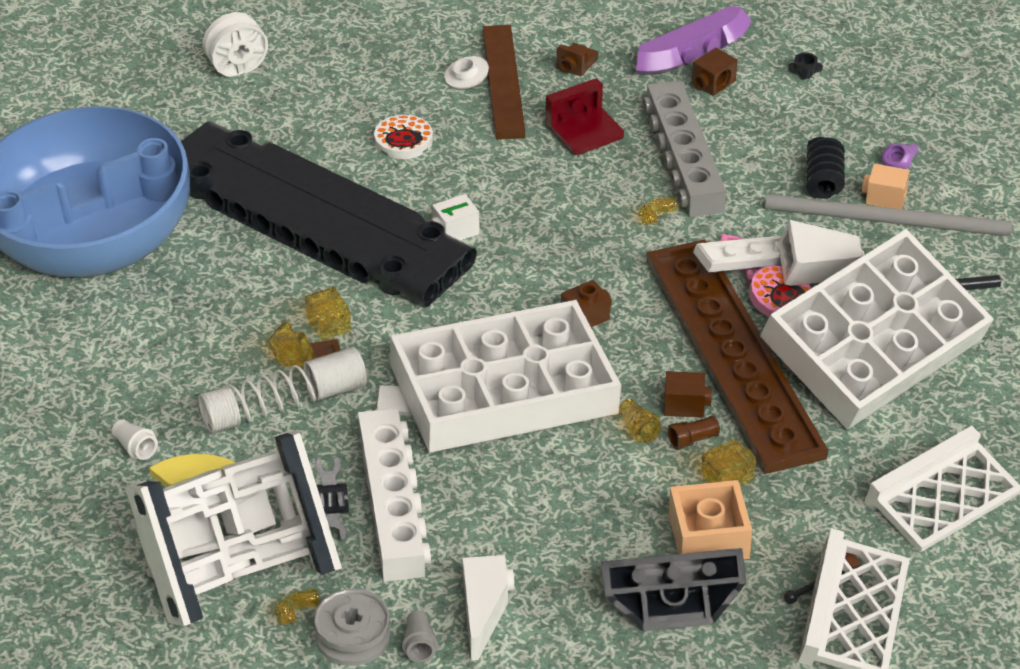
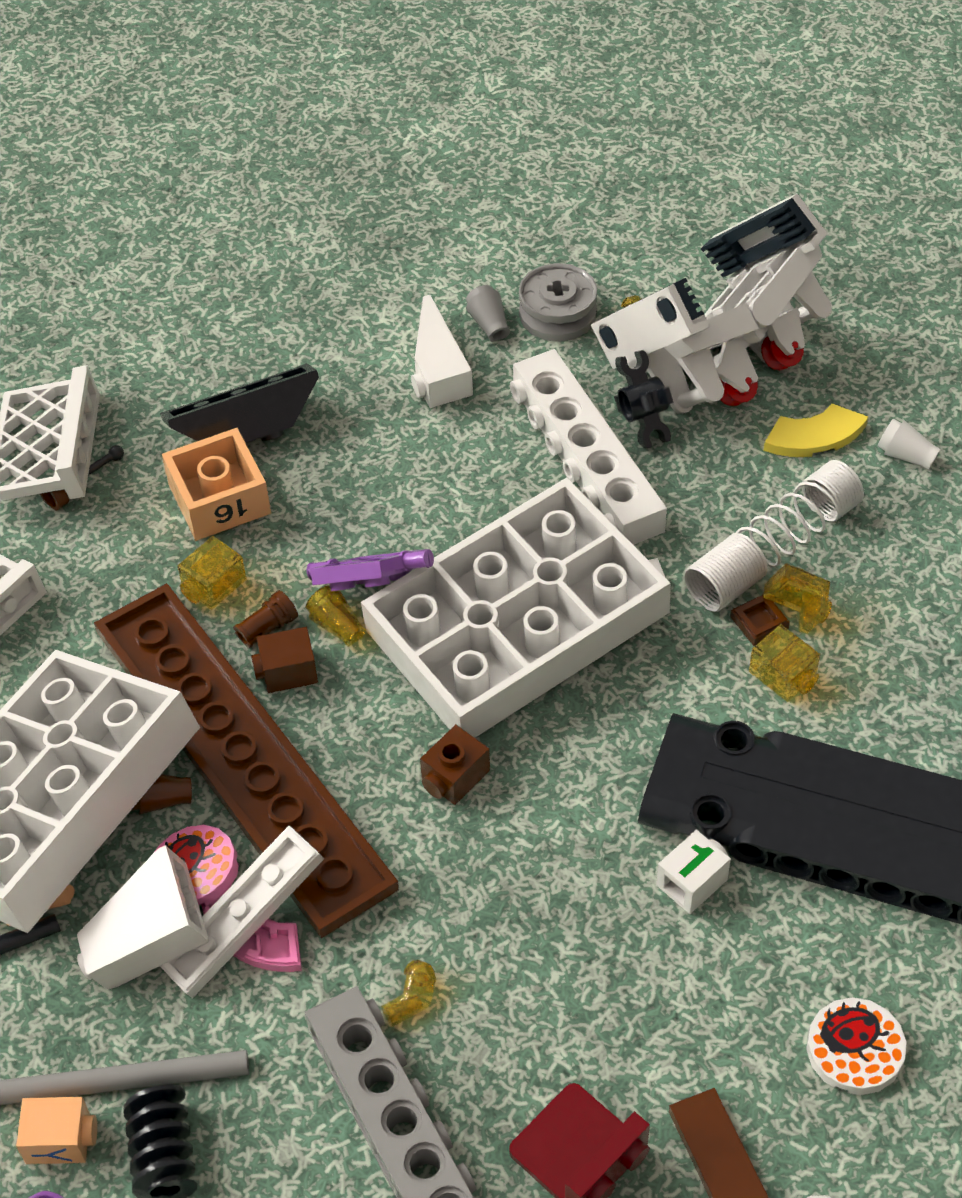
camera: 165 degrees right, 10 degrees up
(605, 416) = (368, 570): none -> medium lavender plate

